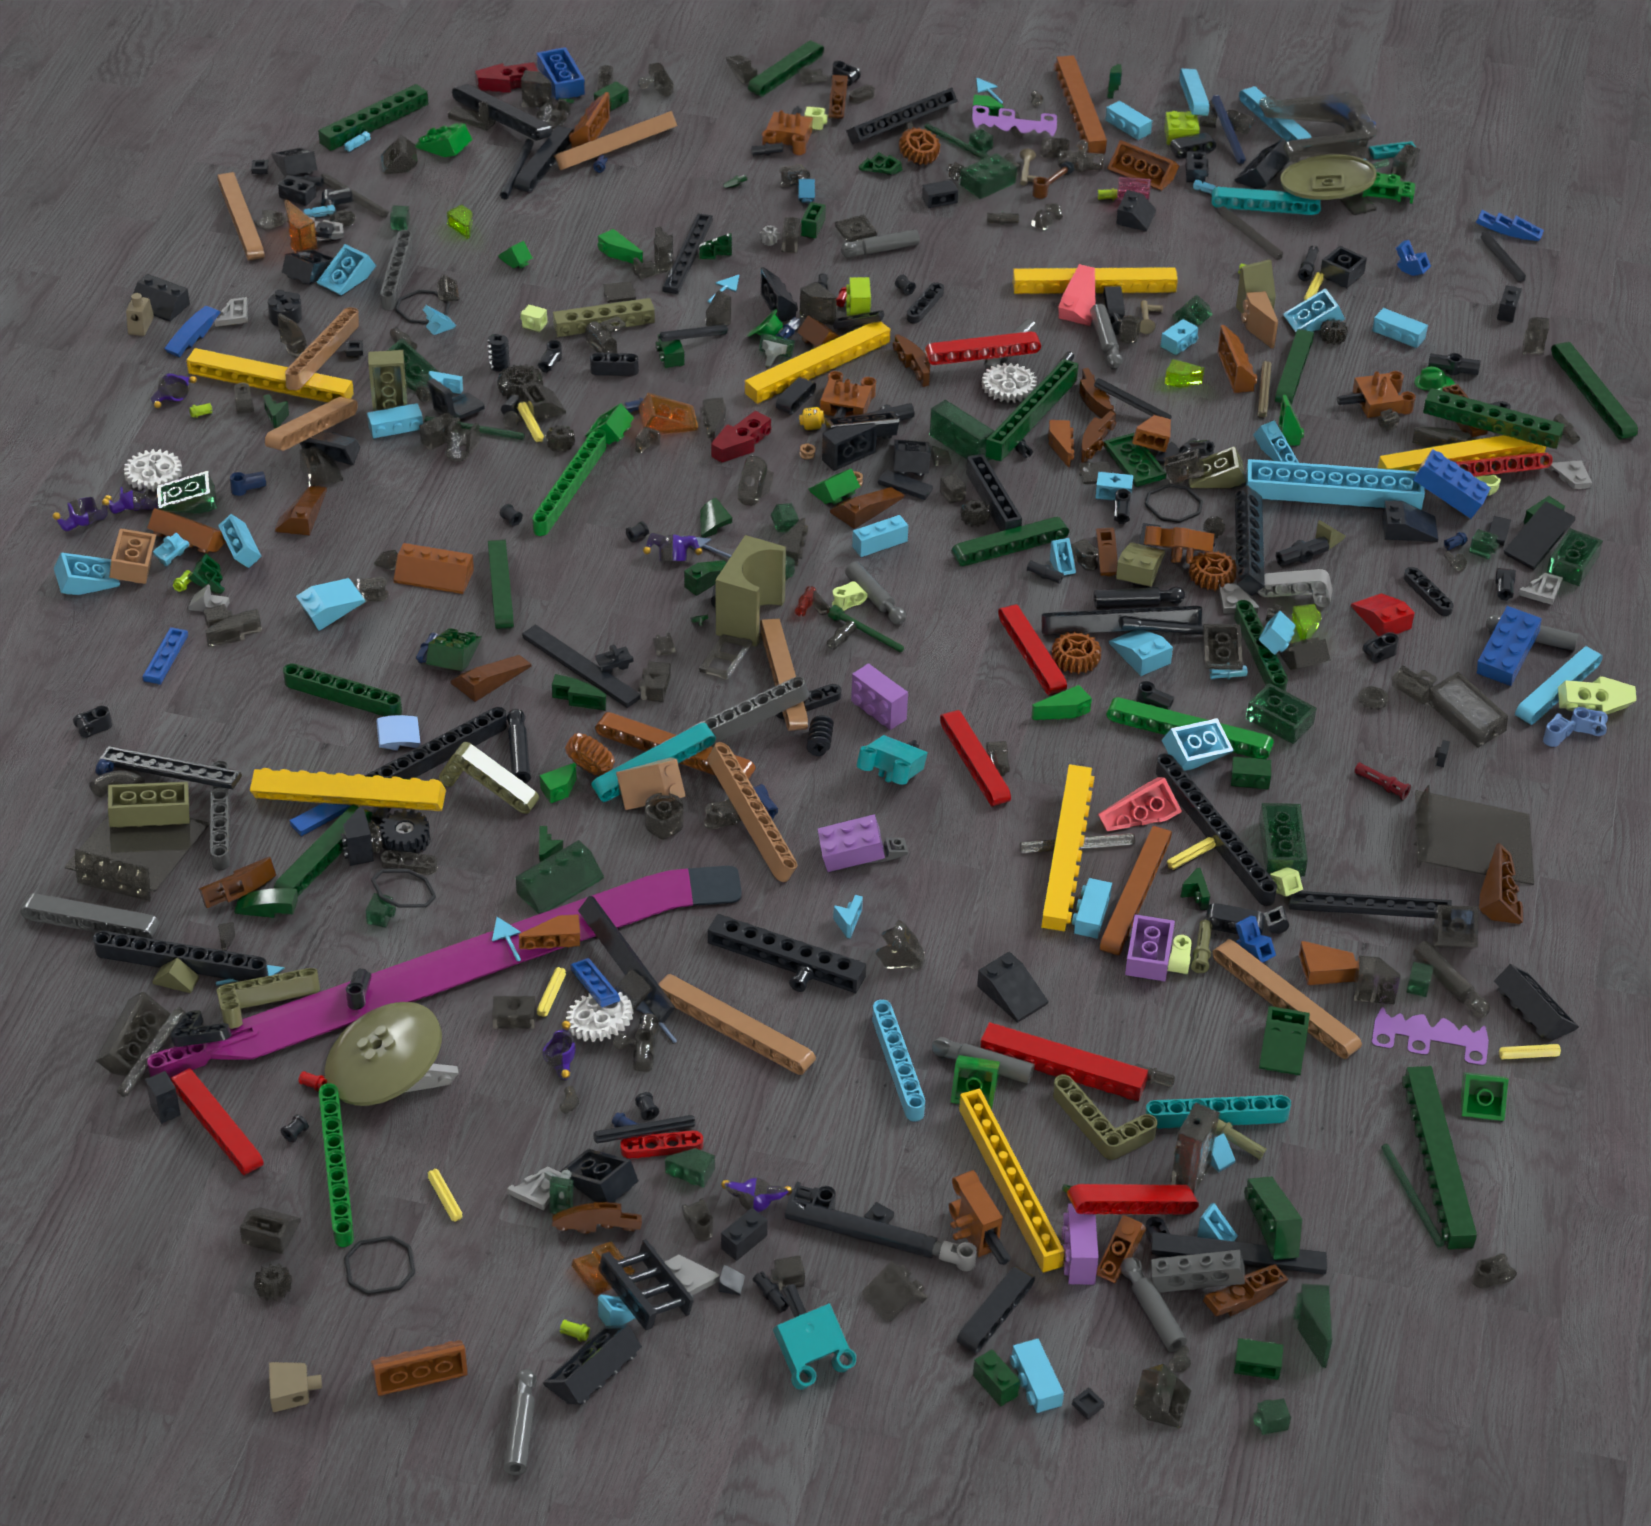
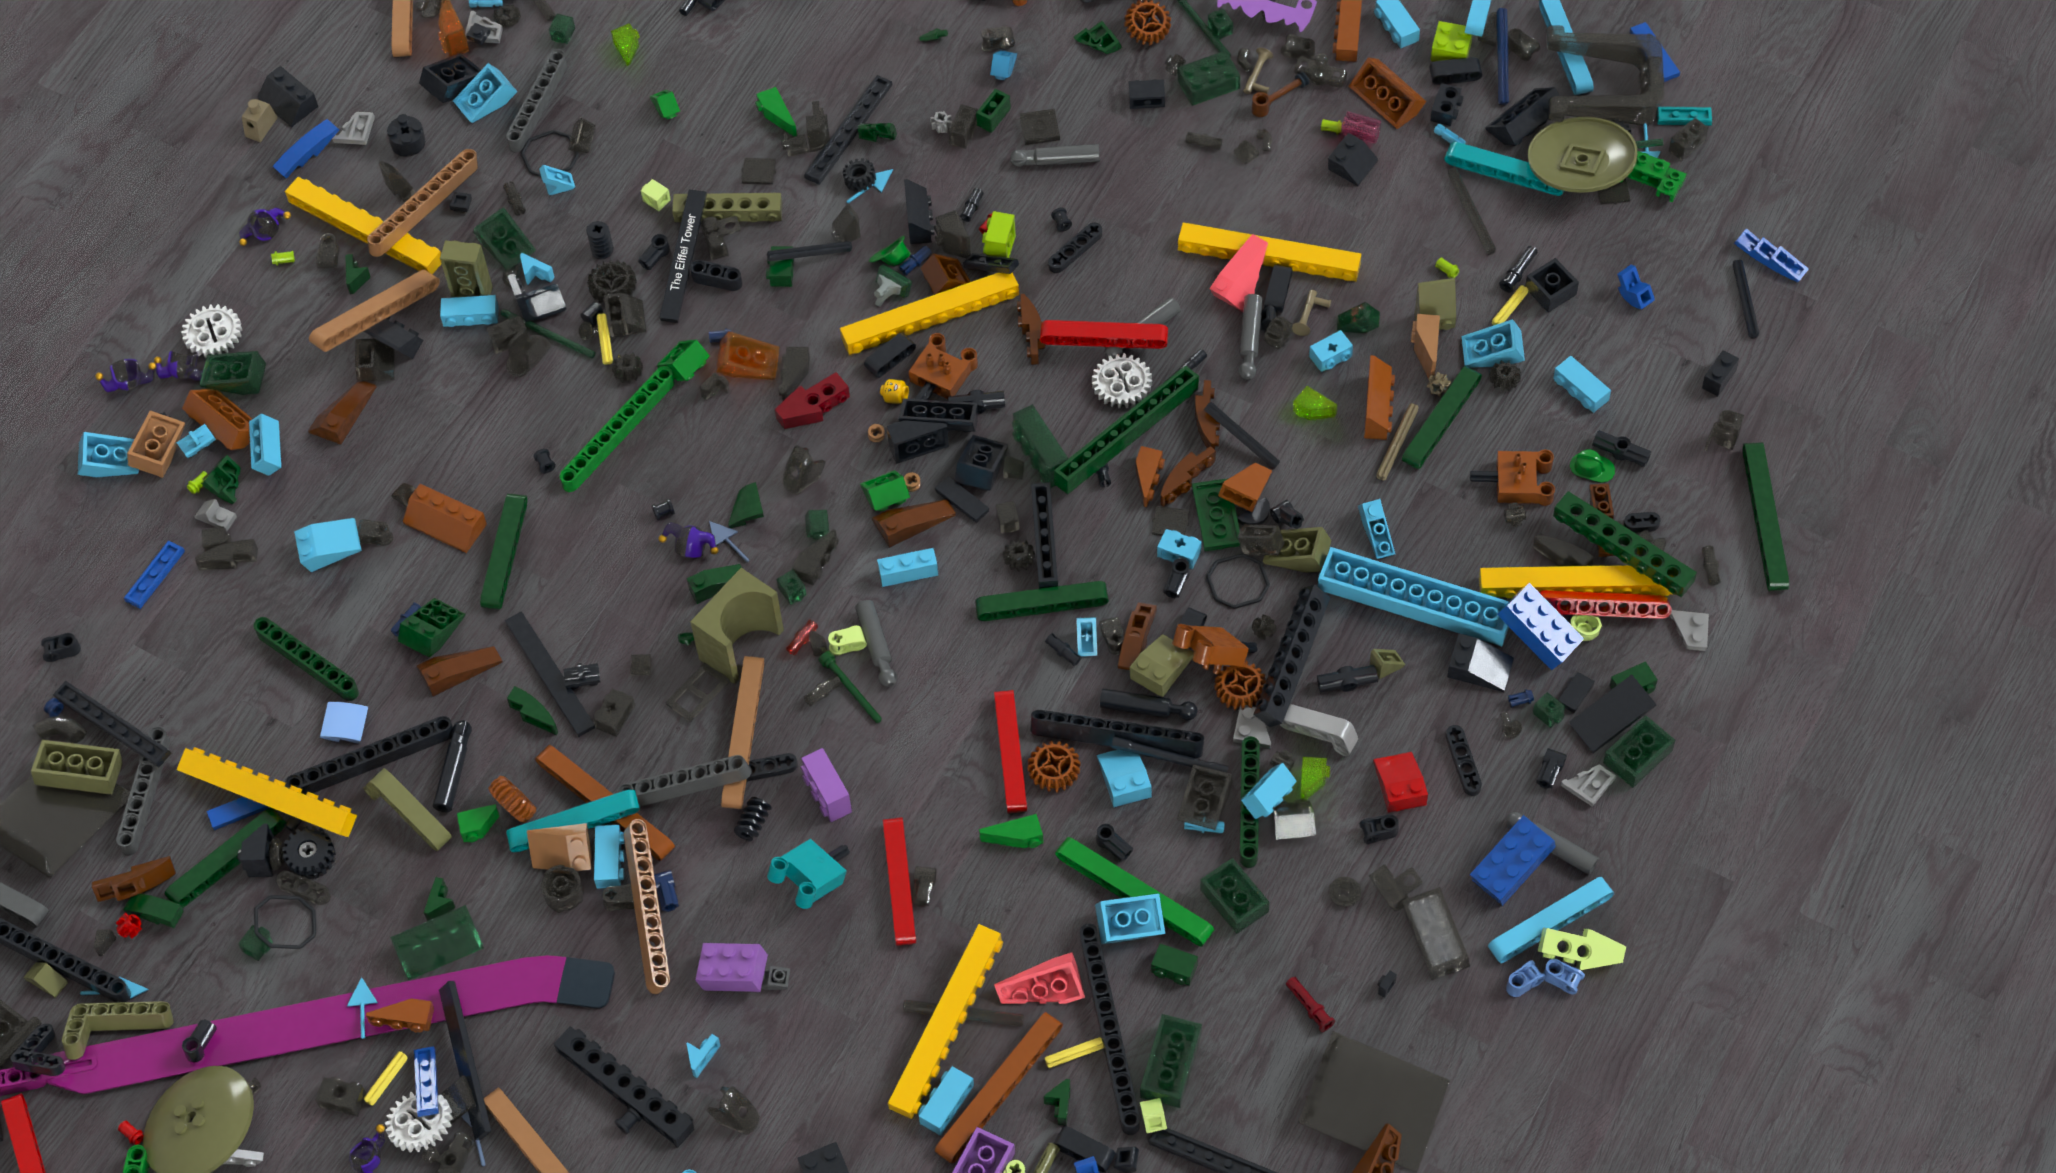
camera: 20 degrees right, 15 degrees up
(241, 483) = (292, 365): dark blue piece -> none
(247, 919) = (128, 925): none -> red gear
(579, 354) = (683, 256): none -> black tile
(696, 785) = (608, 856): none -> medium azure brick
(712, 279) = (856, 168): none -> black tyre
(1280, 339) = (1435, 387): none -> dark tan gear
(1289, 423) = (1398, 505): green slope -> none

